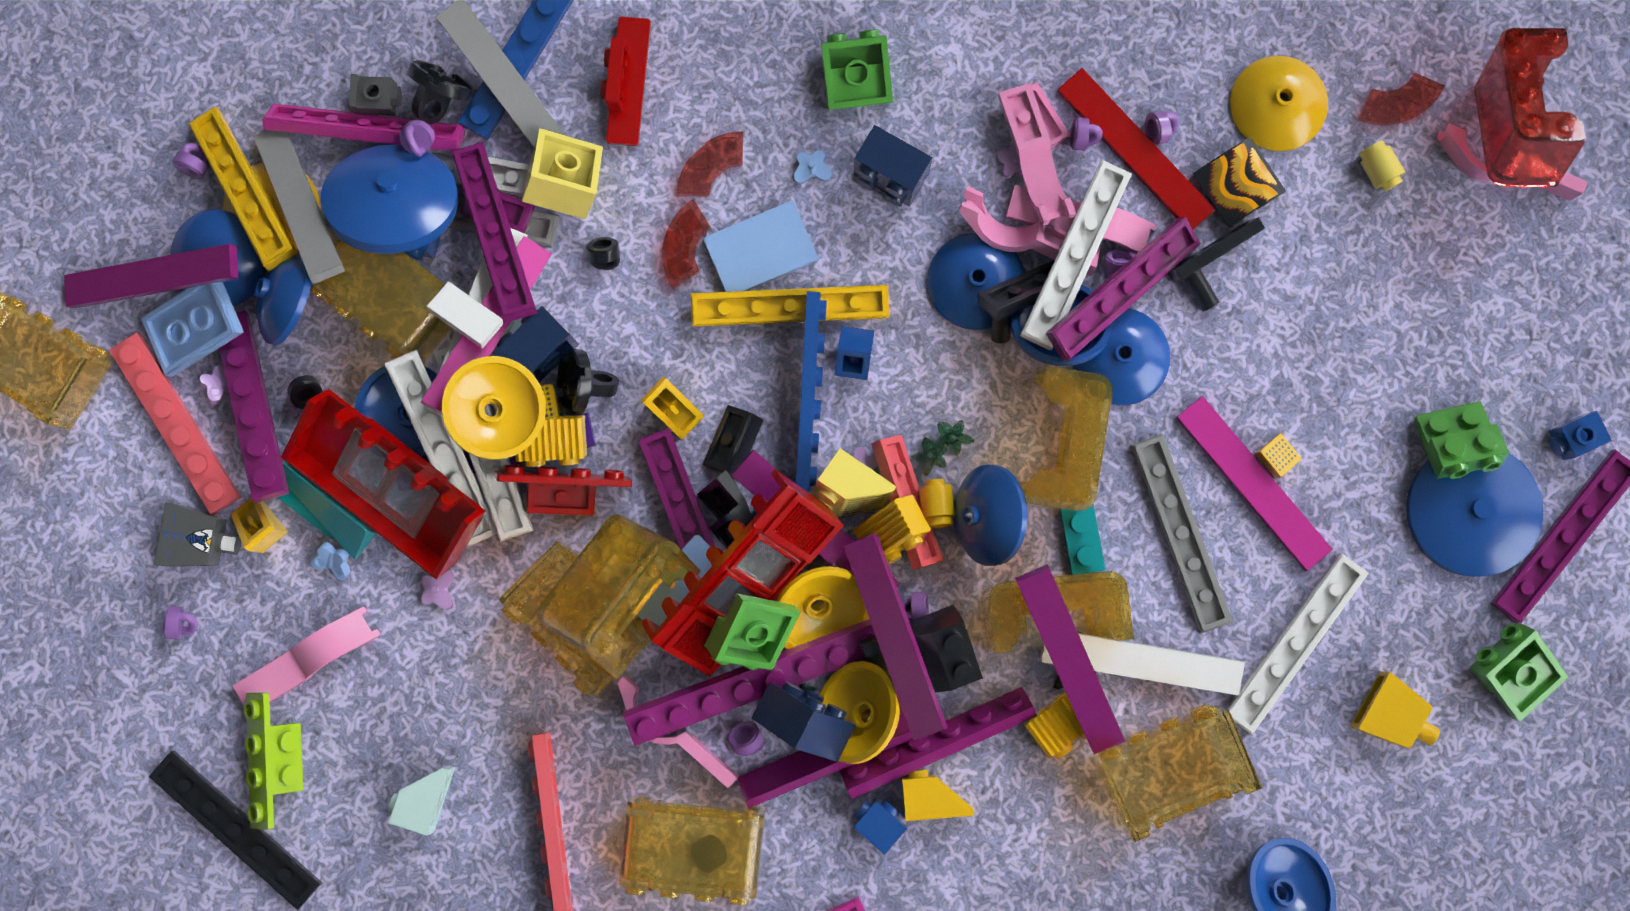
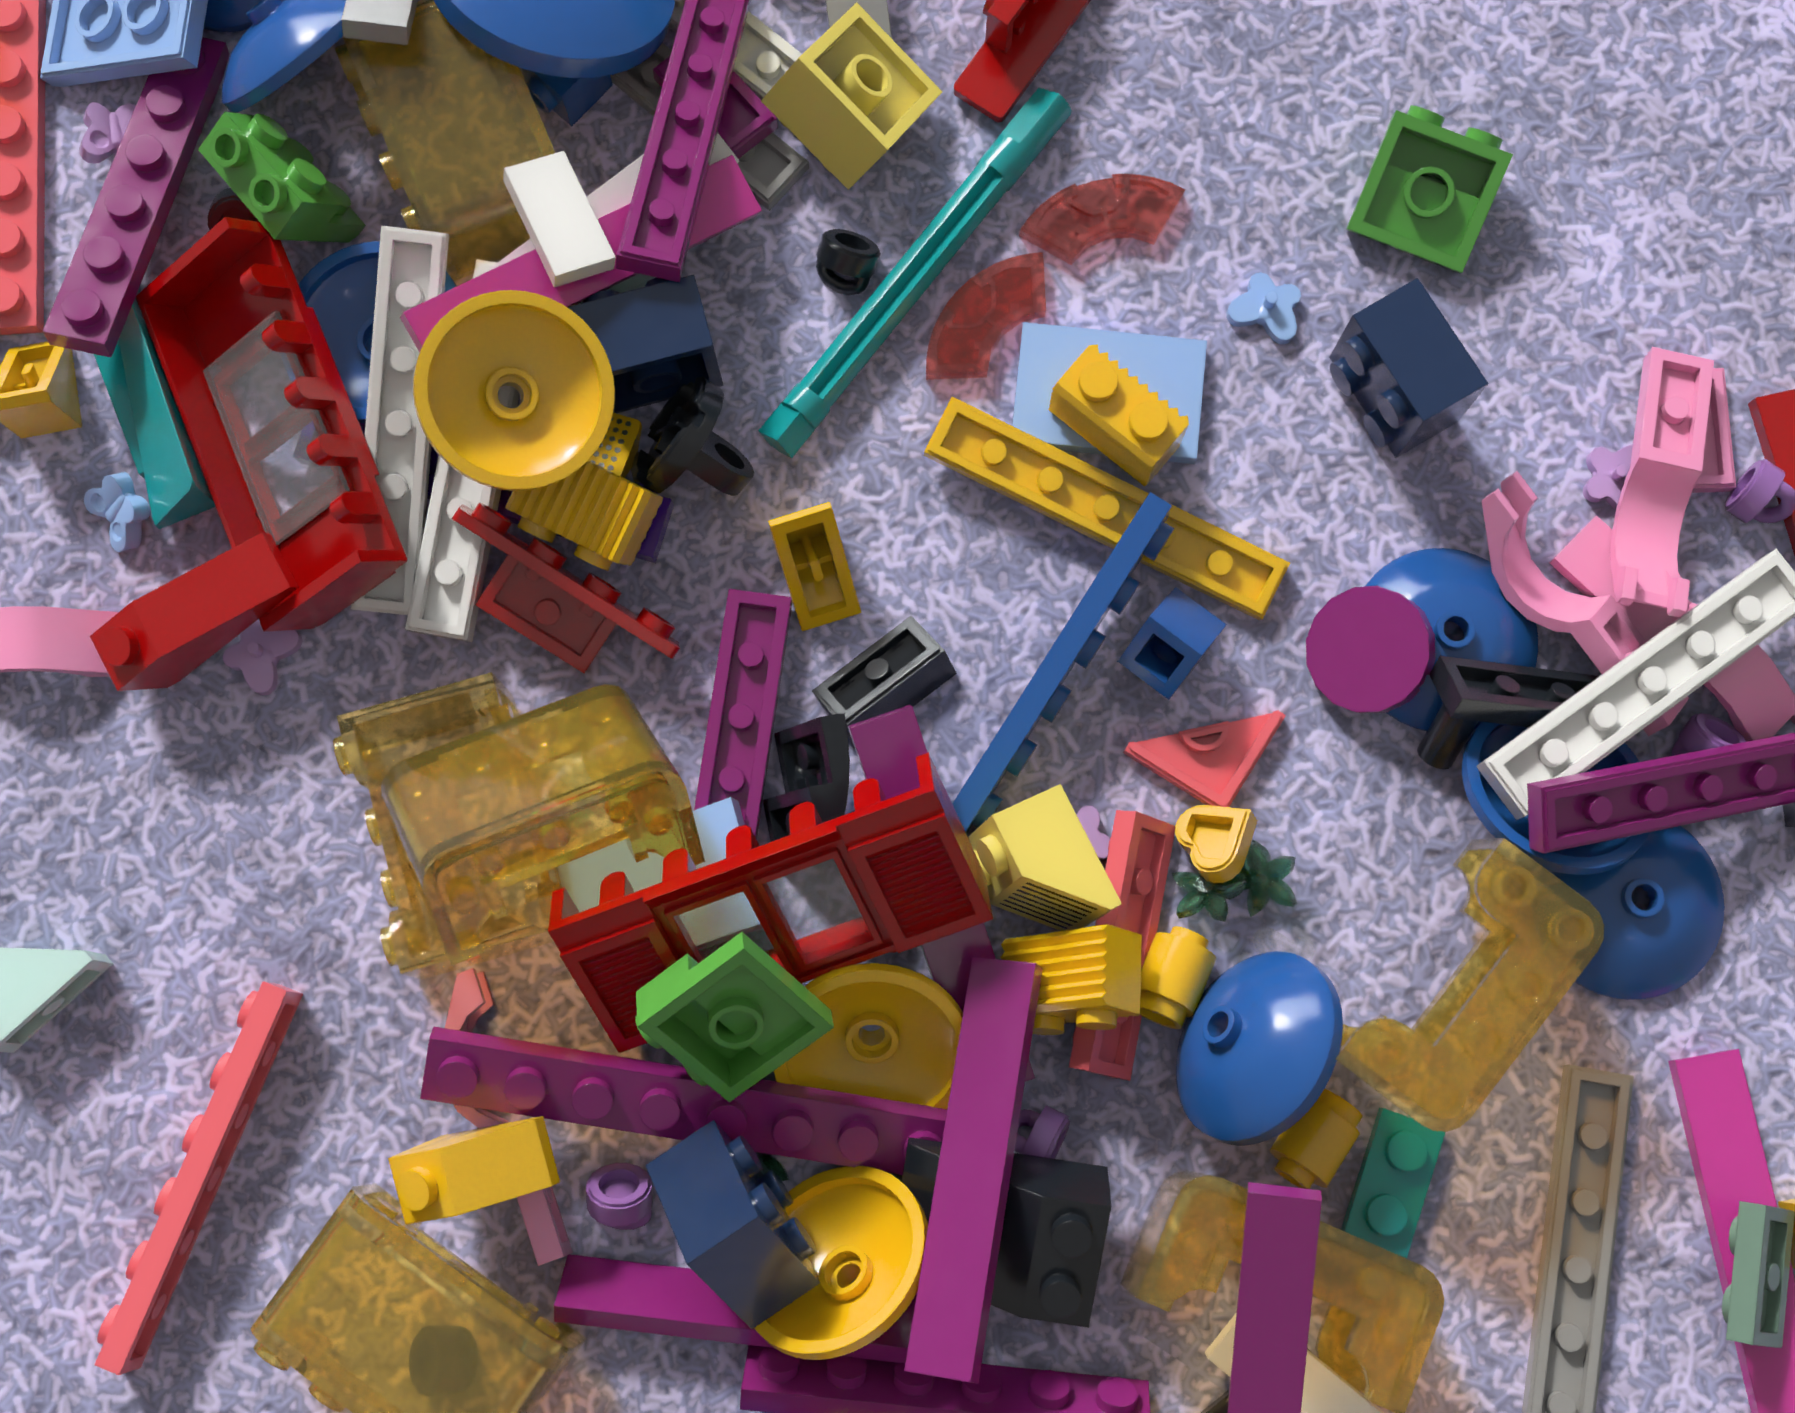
camera: 25 degrees right, 5 degrees down
(316, 365) = (279, 180): none -> bright green plate
(400, 590) = (193, 616): none -> red slope
(639, 239) = (886, 307): none -> teal piece
(676, 763) = (473, 1169): none -> yellow slope
(772, 260) = (1118, 414): none -> yellow brick
(901, 395) = (1209, 759): none -> coral tile
(923, 431) = (1216, 839): none -> yellow tile
(945, 305) = (1370, 649): none -> magenta tile
(1039, 540) = (1318, 1142): none -> yellow brick
(1259, 490) = (1759, 1286): none -> sand green plate

